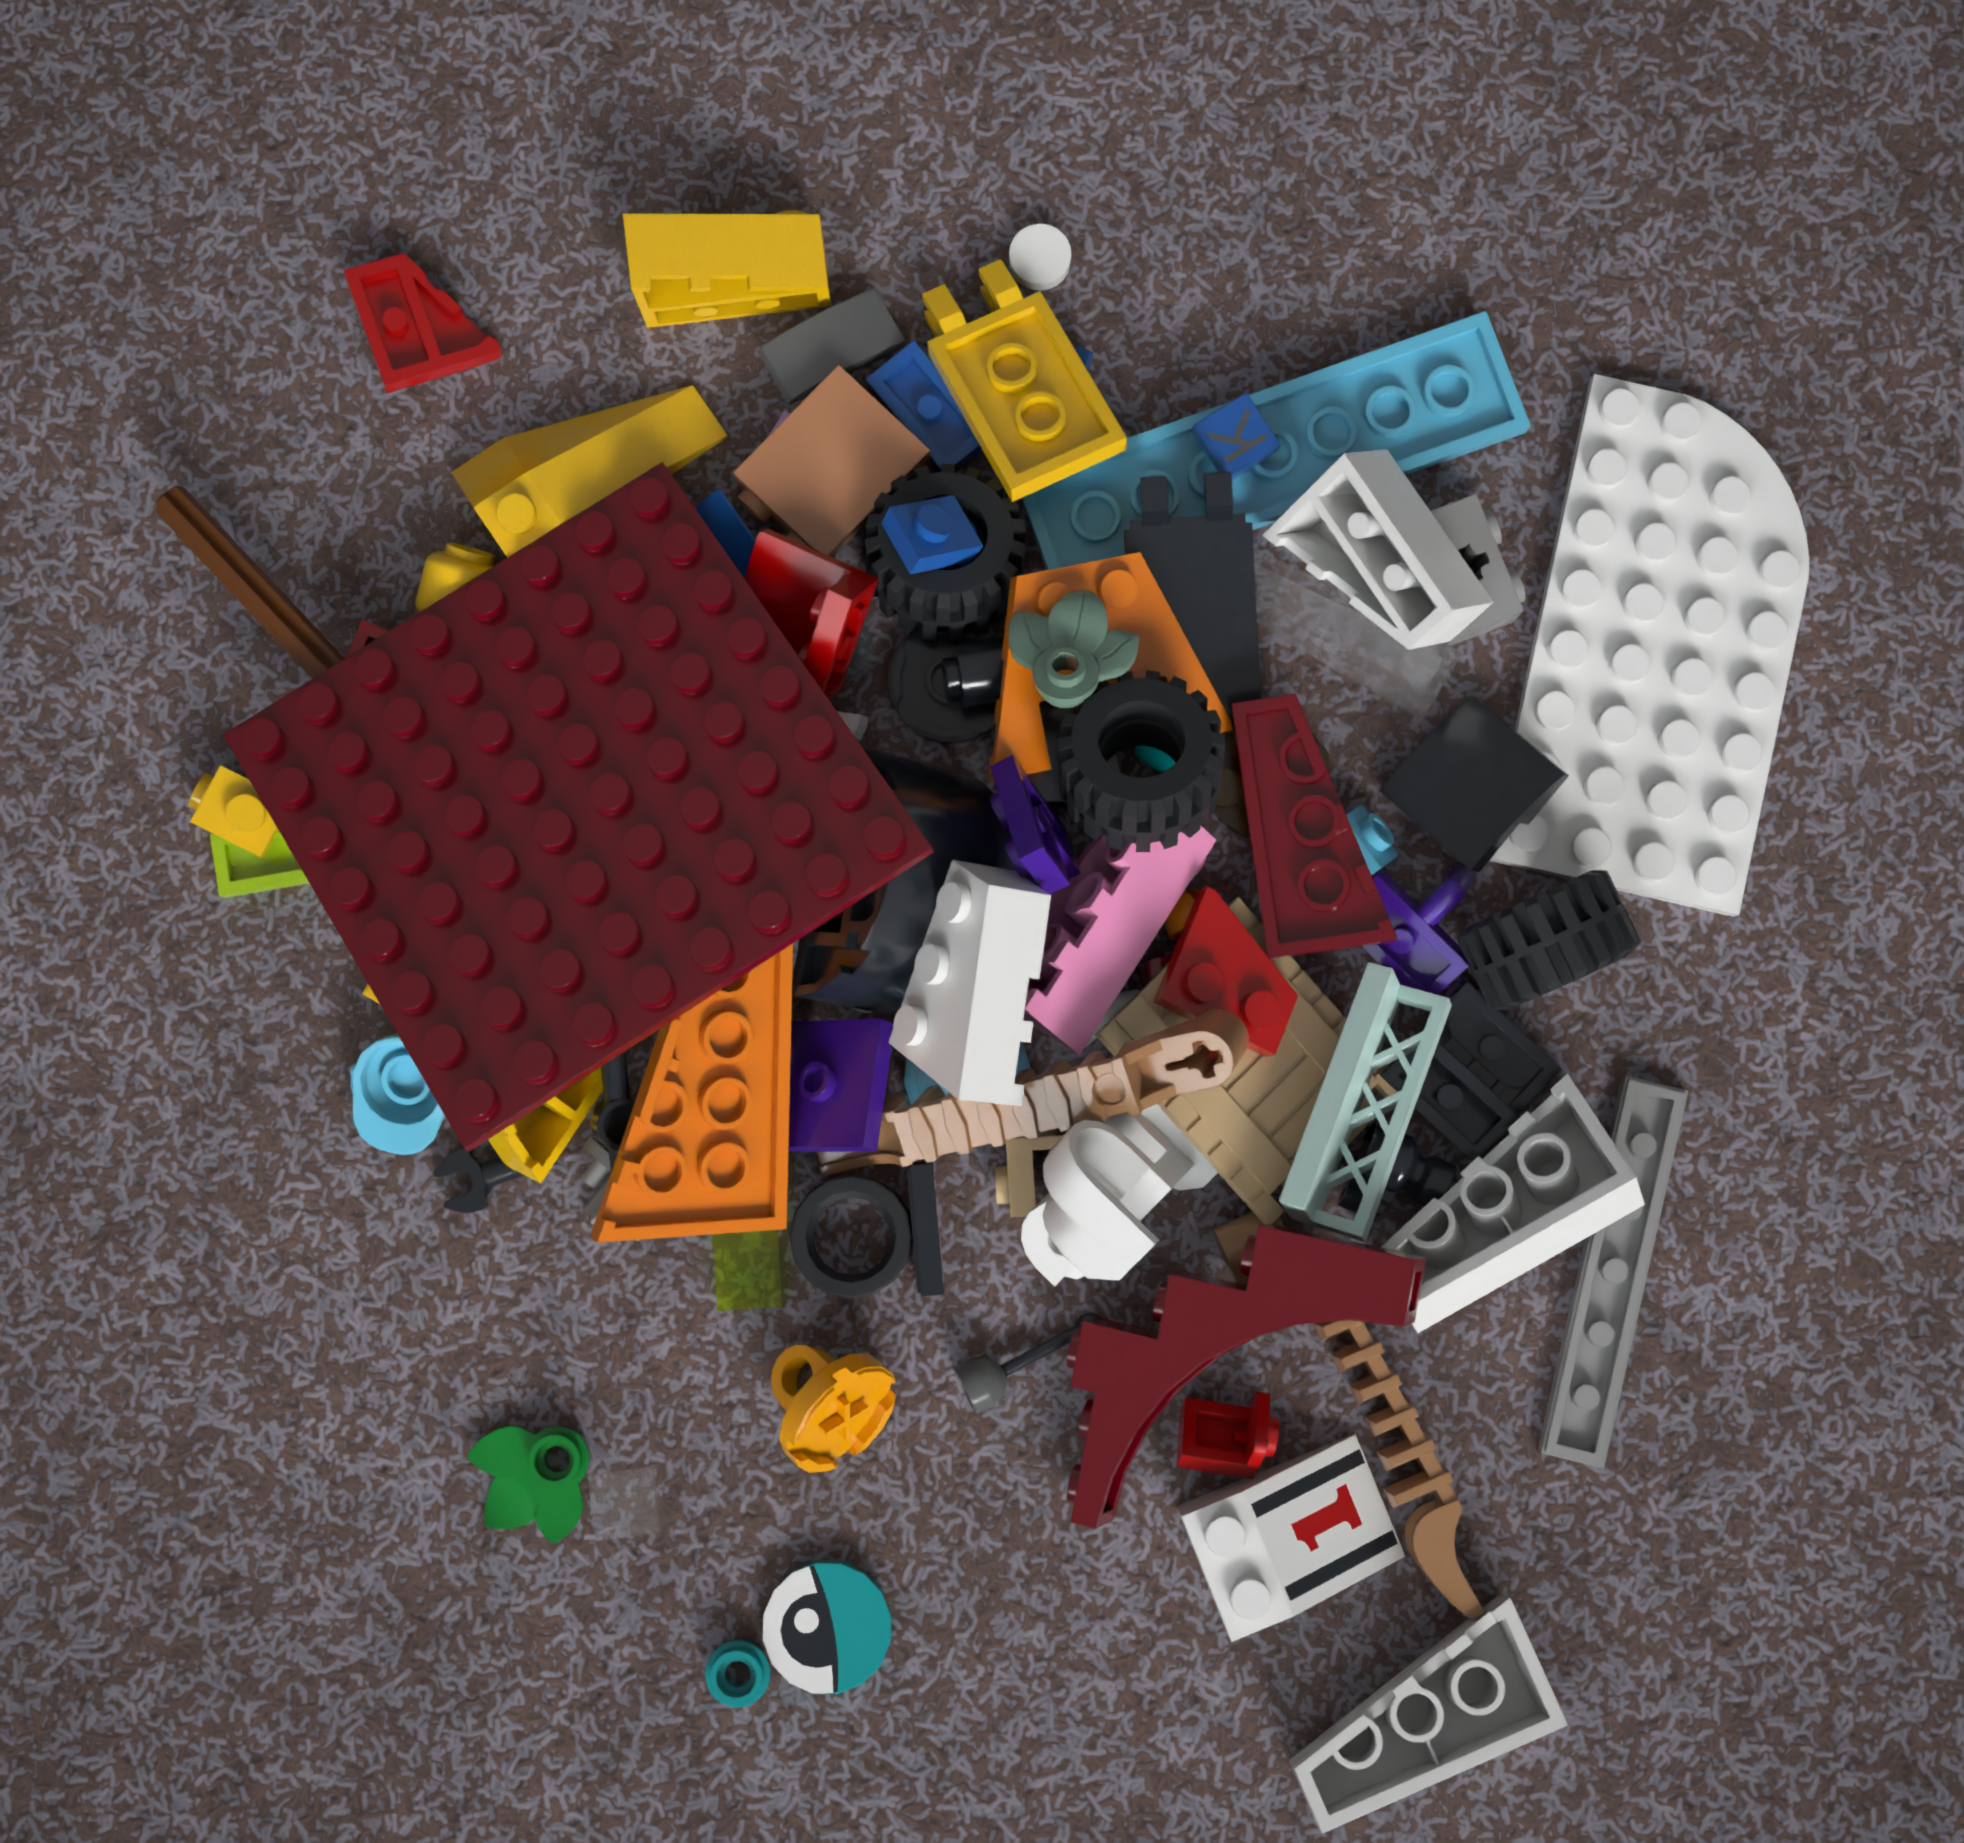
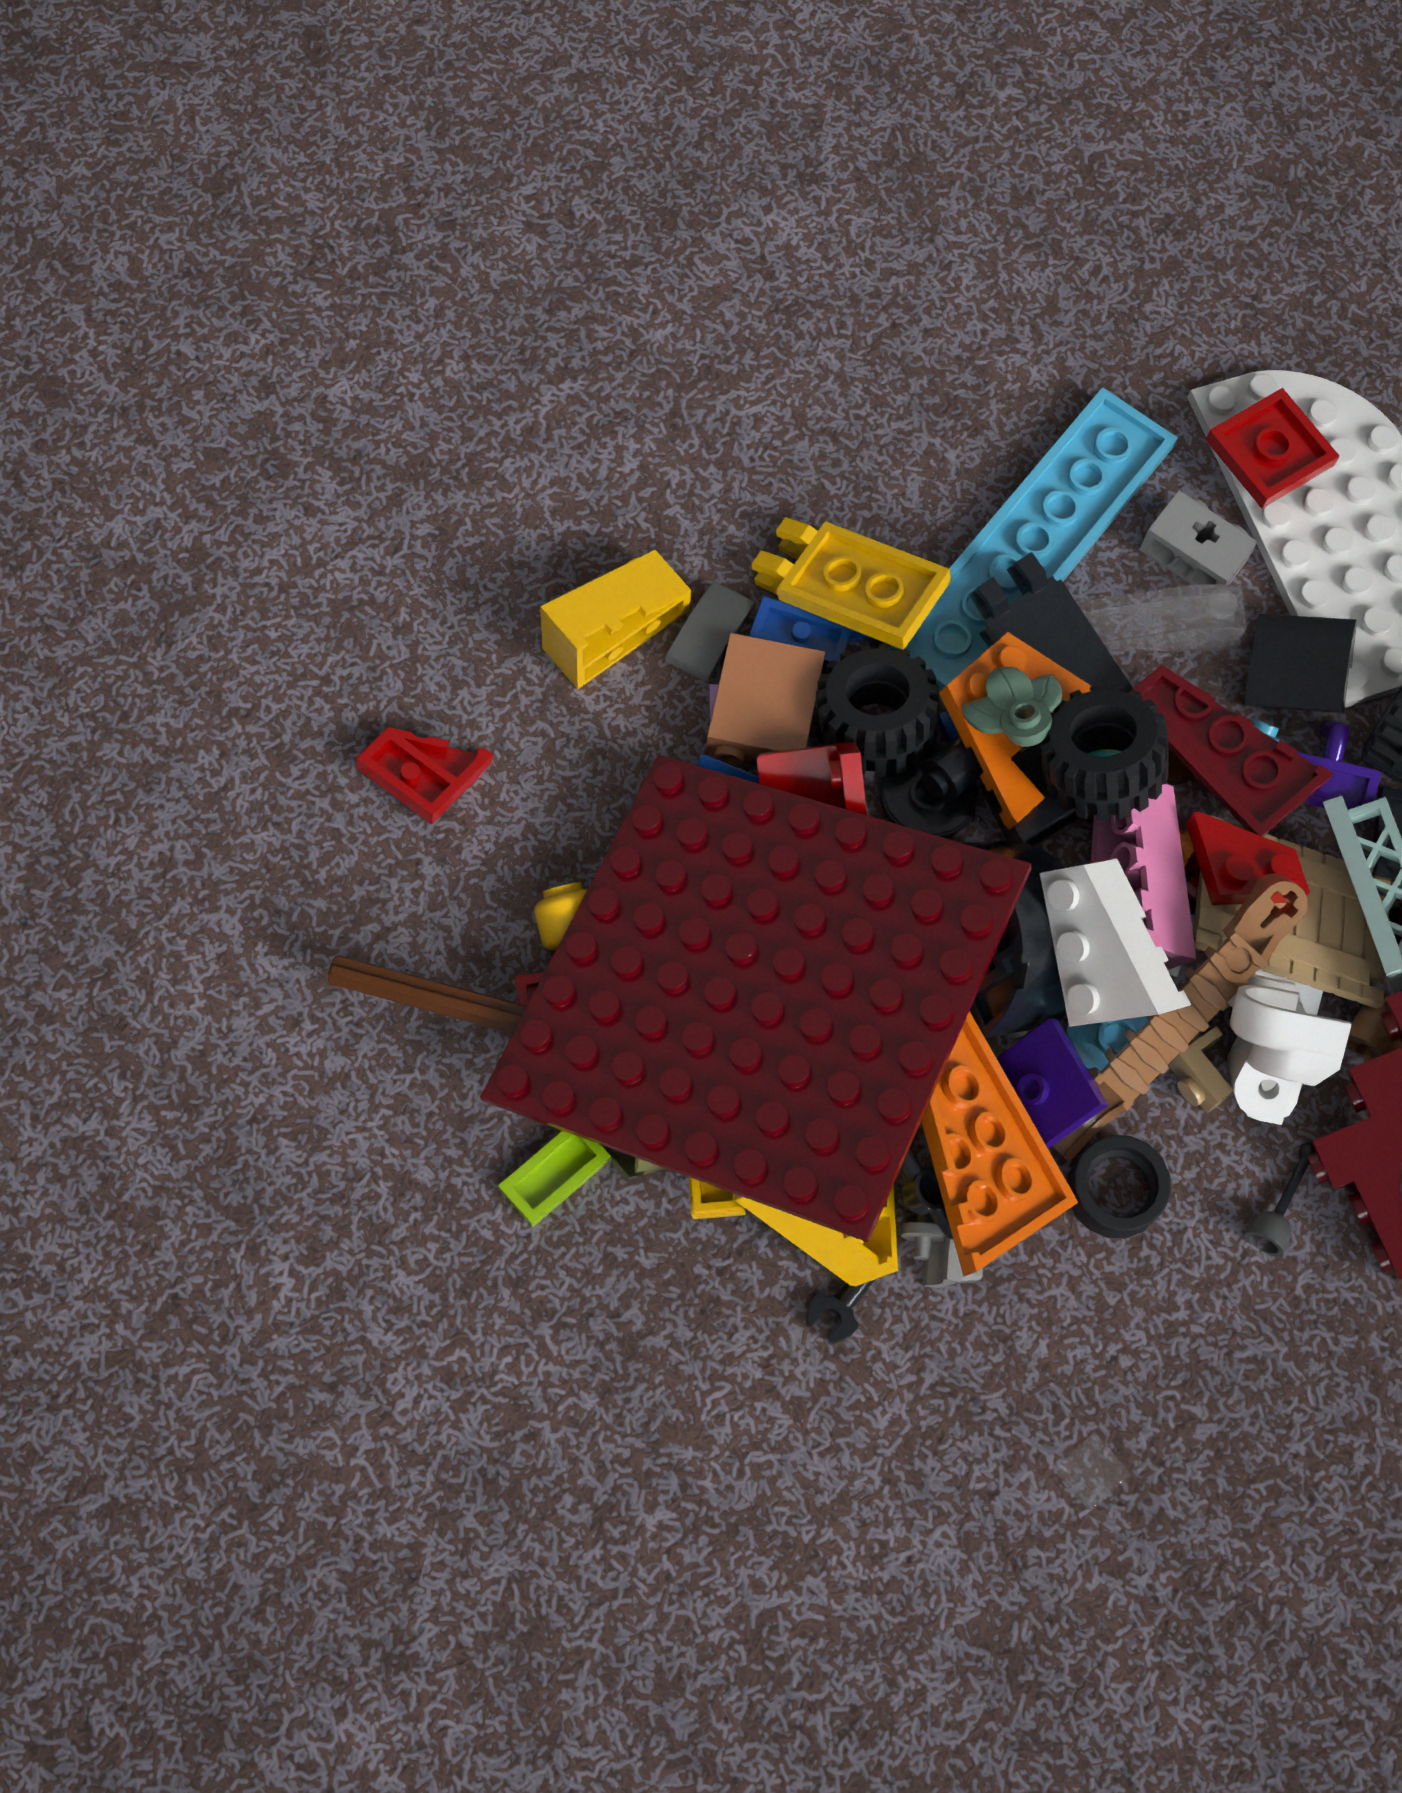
camera: 40 degrees left, 15 degrees down
(232, 811) = (510, 1153): yellow bracket -> none
(392, 1099) = (753, 1277): medium azure hat -> none
(525, 1482) = (1016, 1503): green plate -> none
(558, 470) = (584, 809): yellow wedge -> none
(737, 1694) = (1266, 1534): teal plate -> none
(747, 1270) = (1062, 1254): clear neon green tile -> none
(827, 1627) = (1286, 1467): tile -> none
(835, 1409) = (1193, 1304): light orange tile -> none
(925, 1230) = (1185, 1173): black tile -> none
(932, 534) = (872, 693): blue bracket -> none
(1038, 836) = (1067, 837): dark purple plate -> none
(1039, 257) = (804, 504): white tile -> none
(1236, 437) = (1008, 538): blue tile -> none
(1383, 550) = (1152, 547): white wedge -> none
(1626, 506) = (1272, 447): none -> red plate

